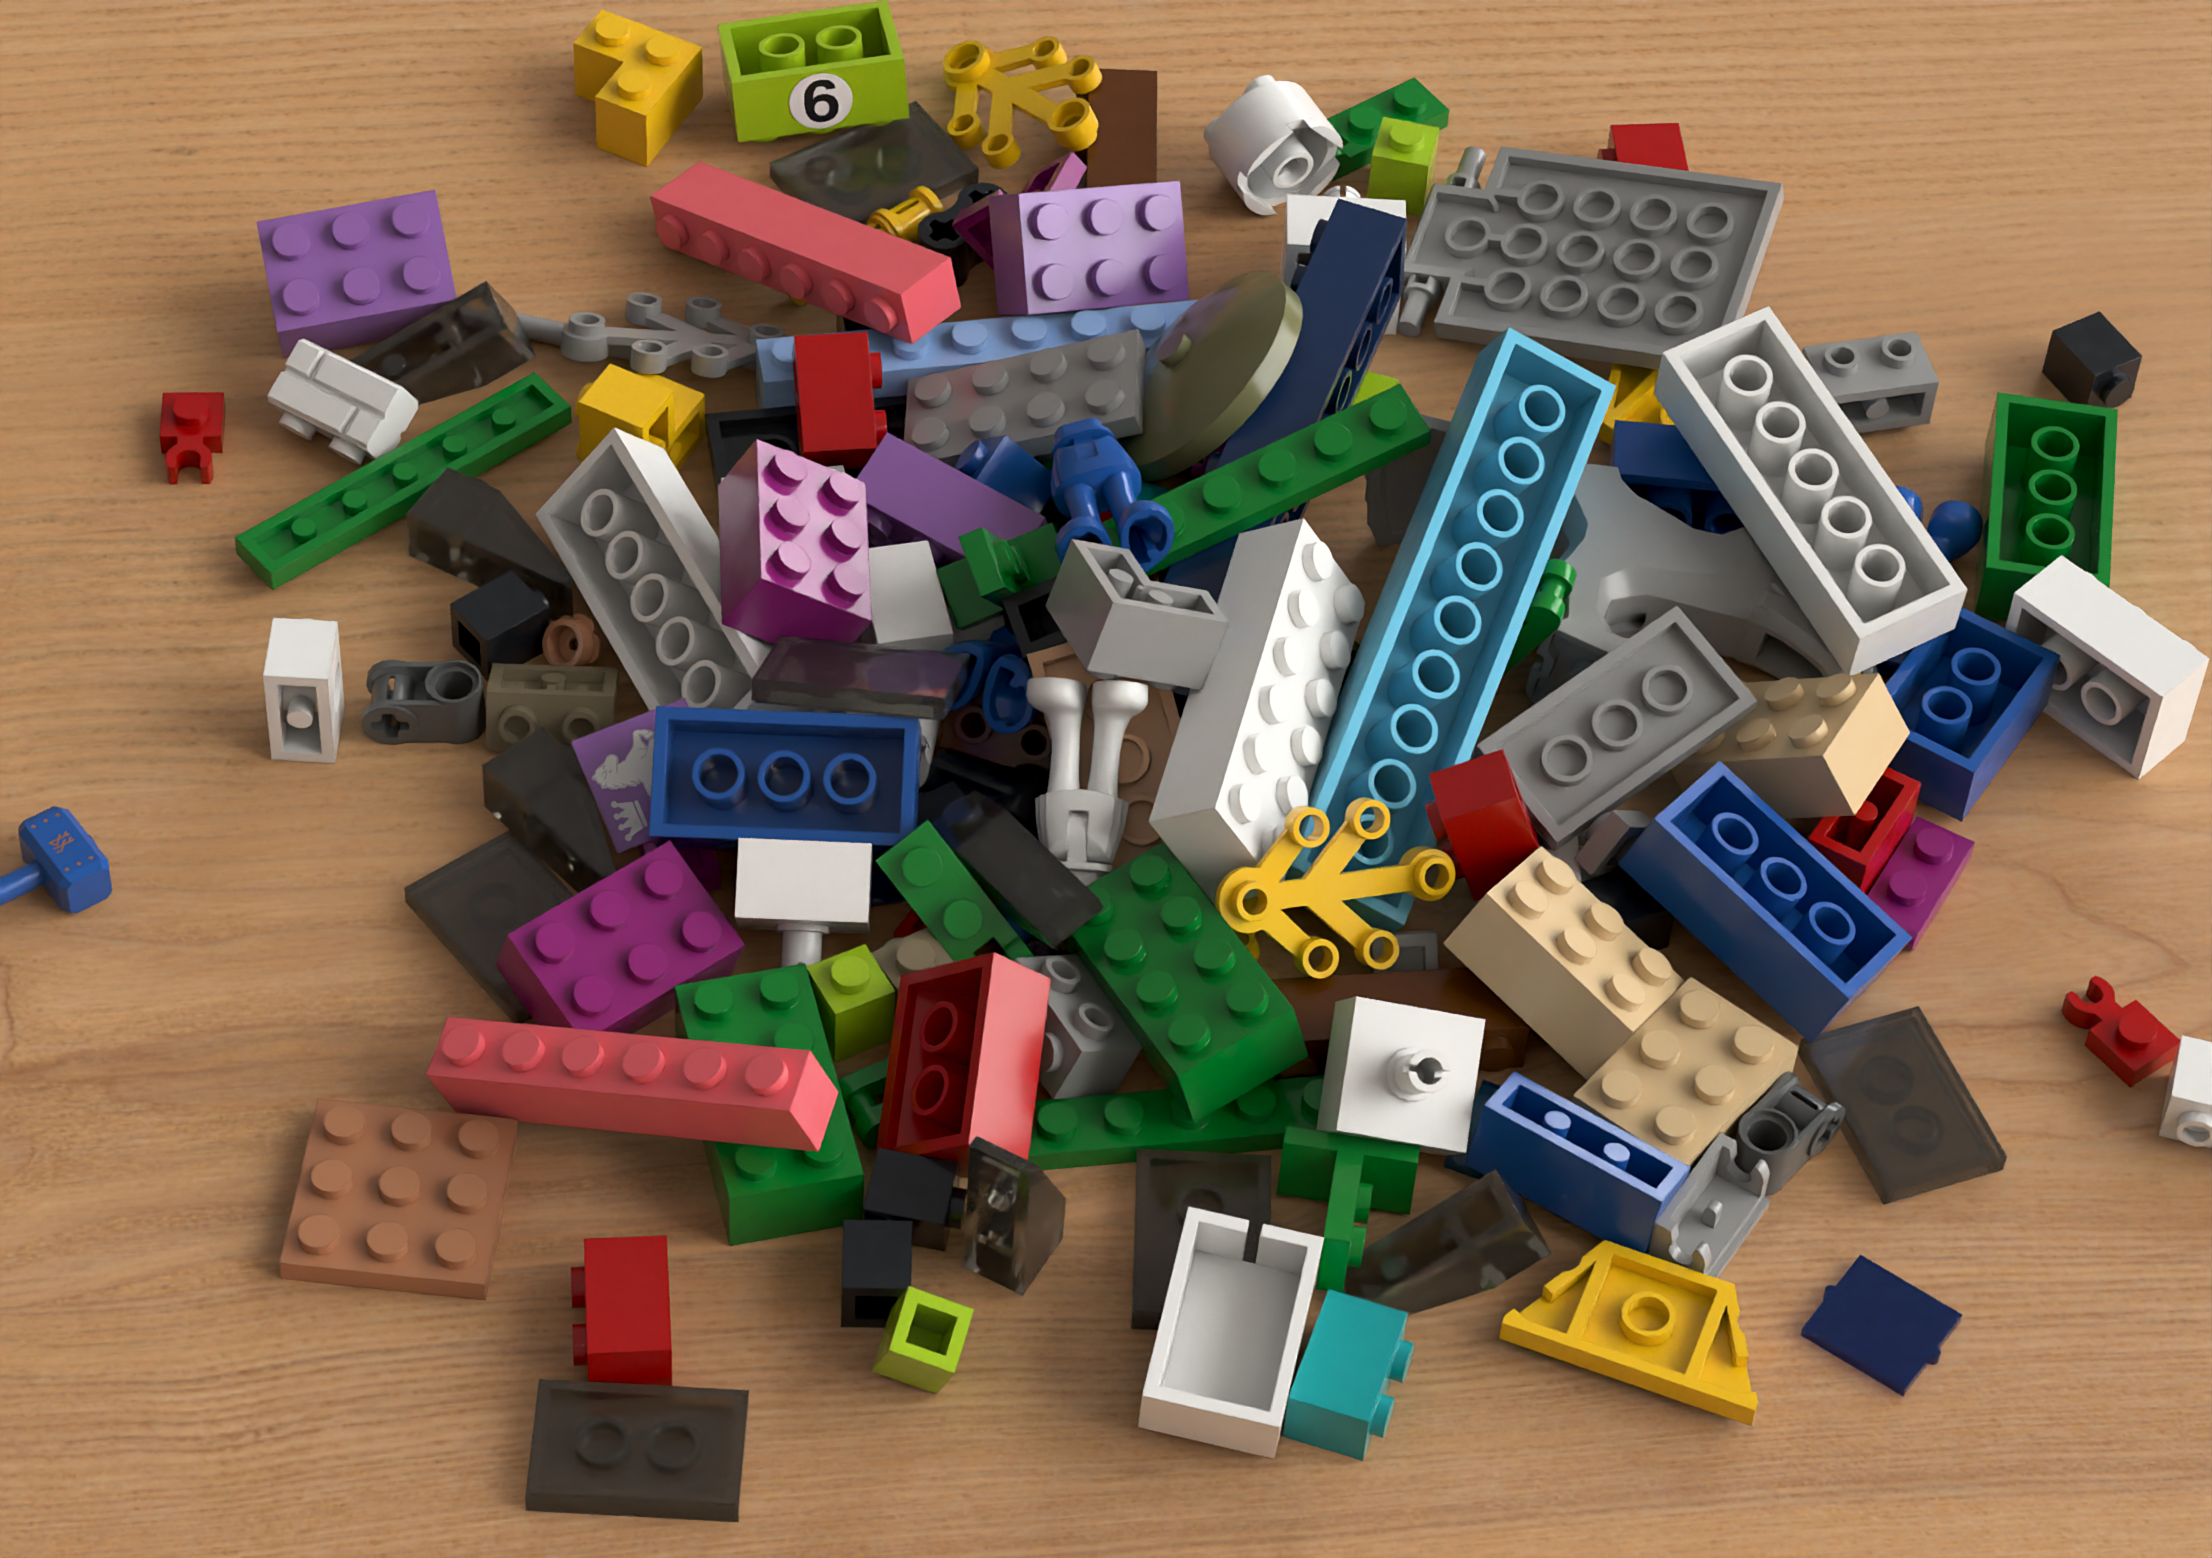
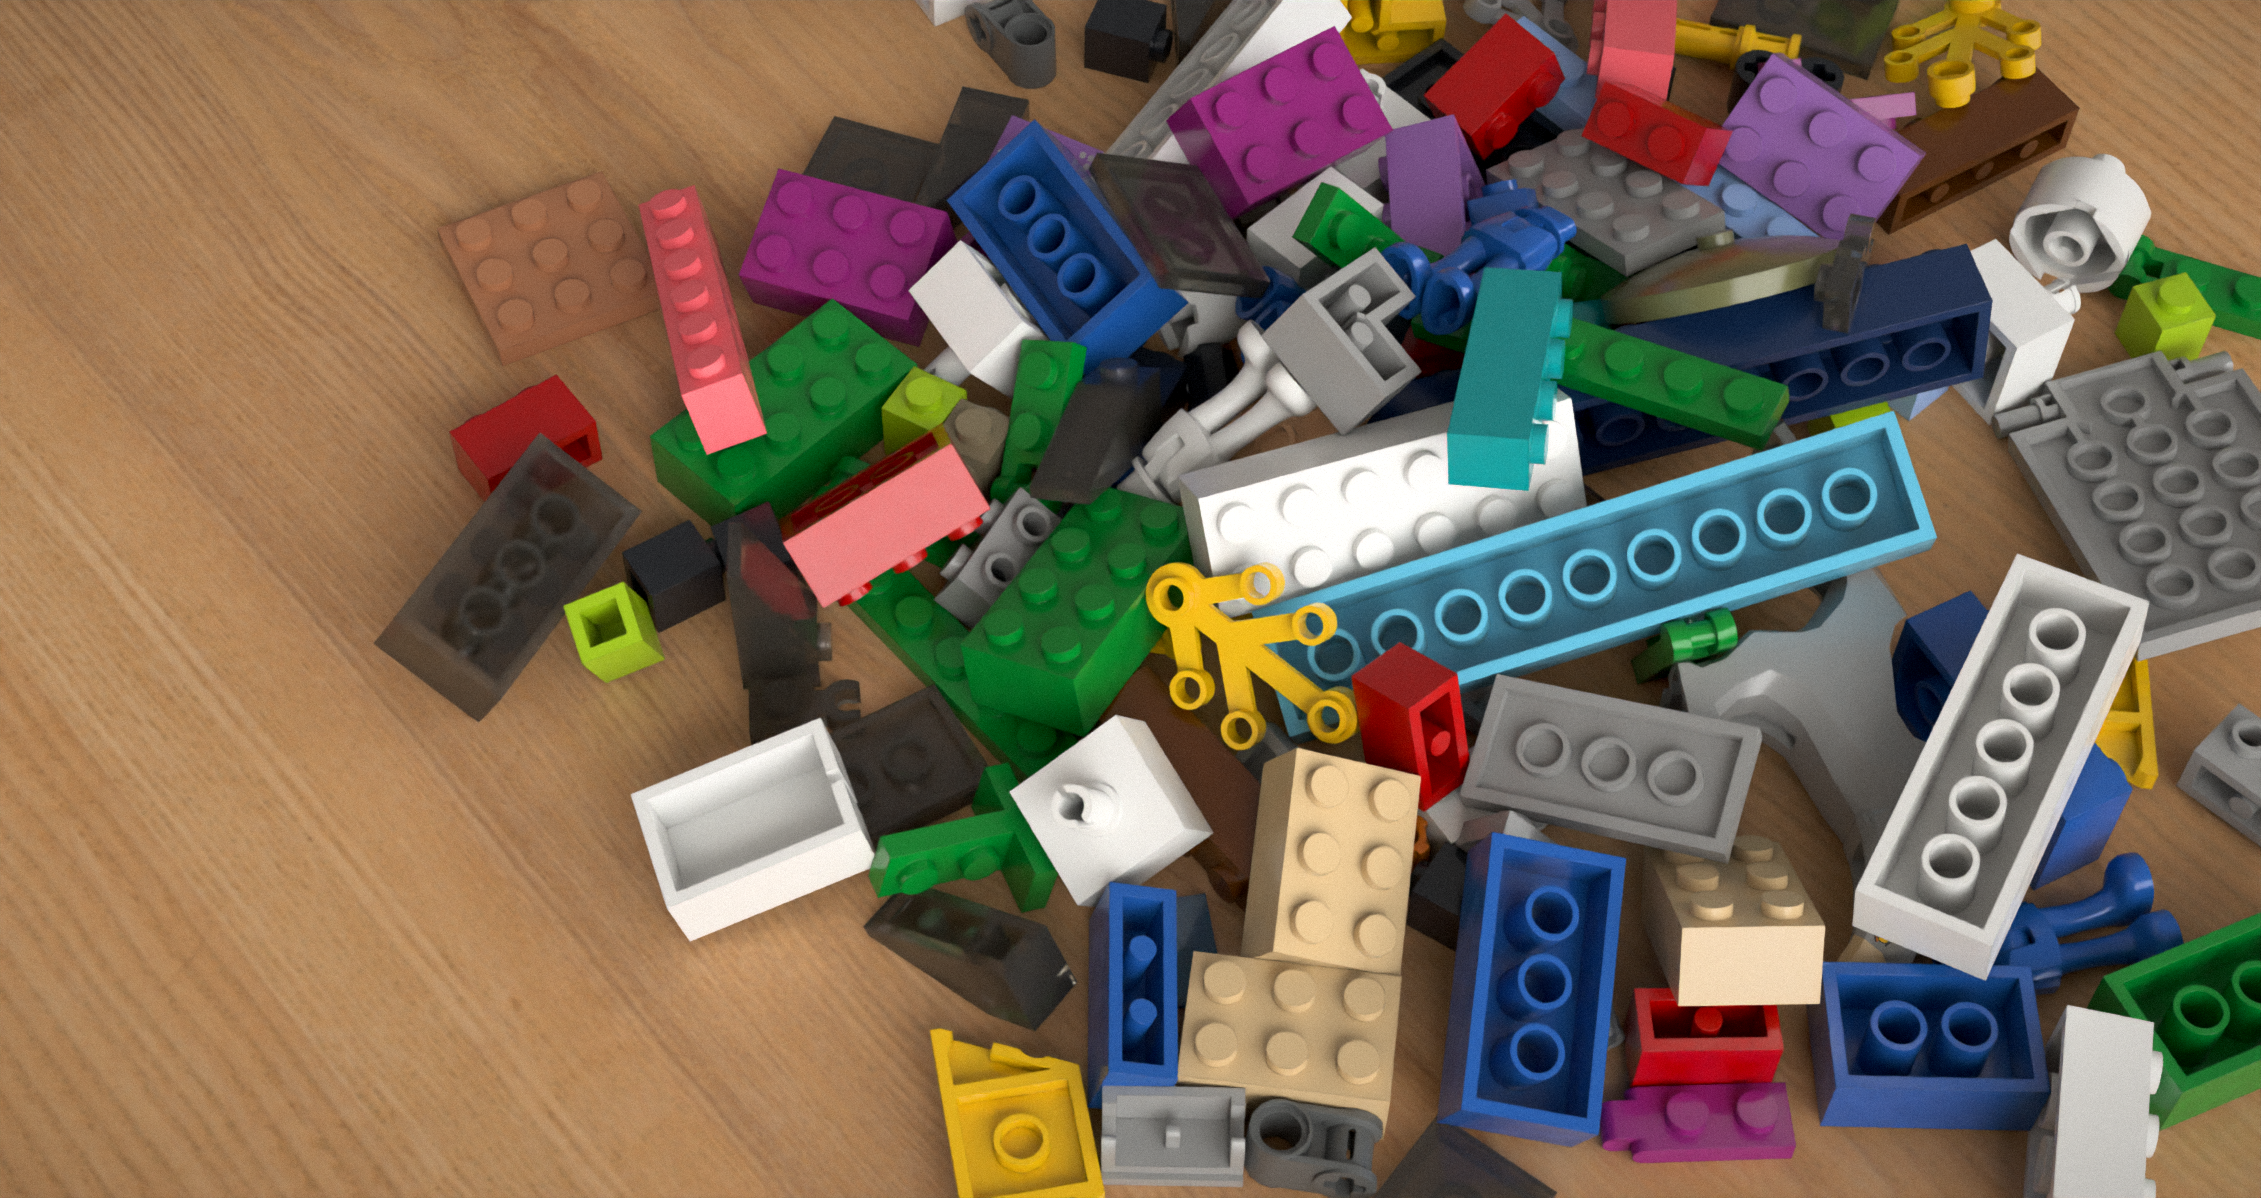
camera: 60 degrees right, 5 degrees up
(559, 698) = (1075, 97): dark tan bracket -> none
(560, 638) = (1144, 82): nougat plate -> none
(637, 1450) = (403, 510): clear smoke tile -> none
(808, 1384) = (508, 578): none -> clear smoke brick
(1005, 324) = (1656, 133): none -> red brick
(1084, 1267) = (791, 701): none -> clear smoke plate
(1272, 539) = (1506, 379): none -> teal brick
(1324, 287) = (1842, 282): none -> clear smoke plate
(1346, 1375) = (797, 944): teal brick -> none

